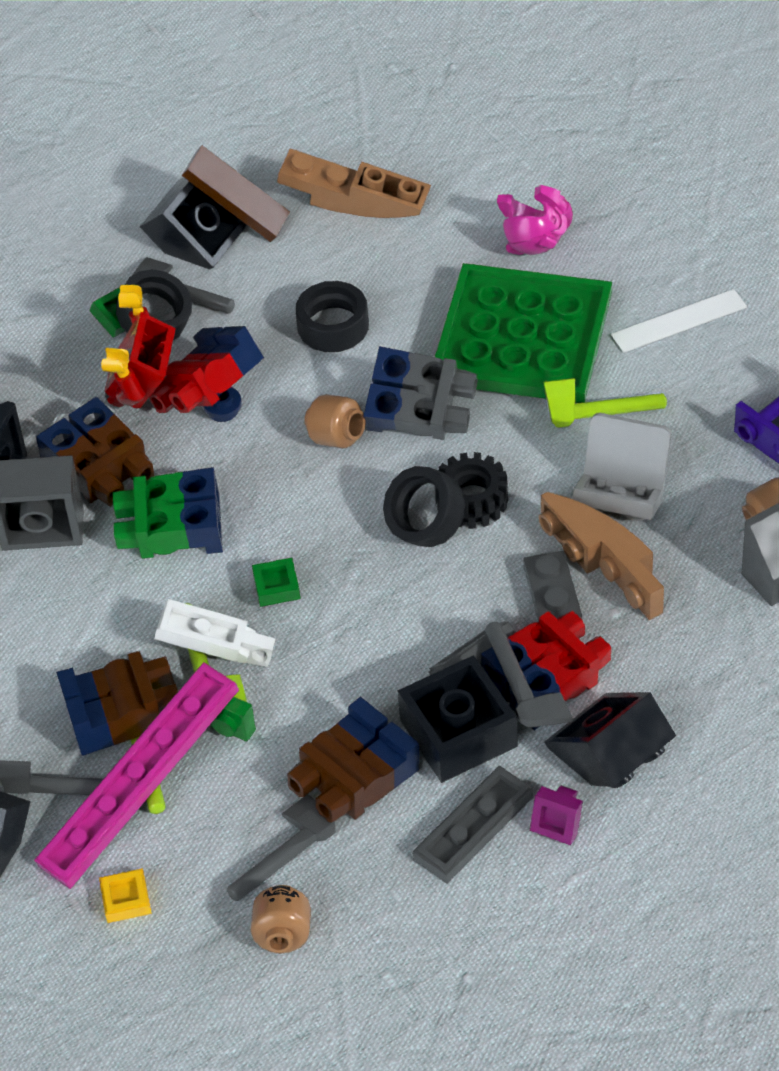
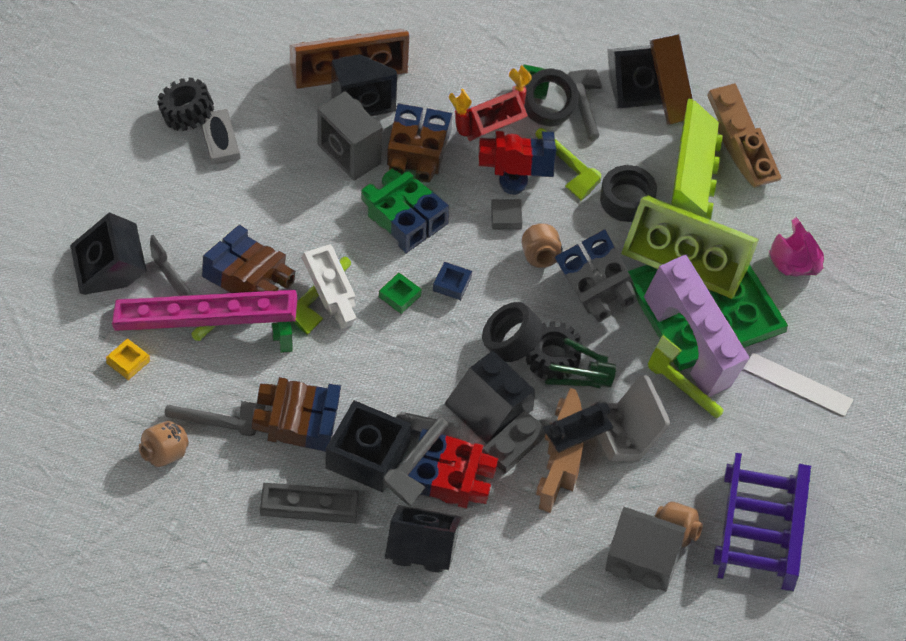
camera: 45 degrees right, 5 degrees up
(258, 433) = (506, 214): none -> dark grey tile
(277, 340) = (587, 177): none -> lime piece
(303, 526) = (452, 281): none -> dark blue plate
(356, 247) = (697, 161): none -> lime slope
(456, 296) = (668, 232): none -> lime slope
(485, 575) = (490, 397): none -> black slope
(529, 313) = (721, 354): none -> lavender arch
(533, 467) = (597, 374): none -> dark green plant
(556, 814) = (346, 540): magenta tile -> none
(601, 510) = (579, 426): none -> black hinge

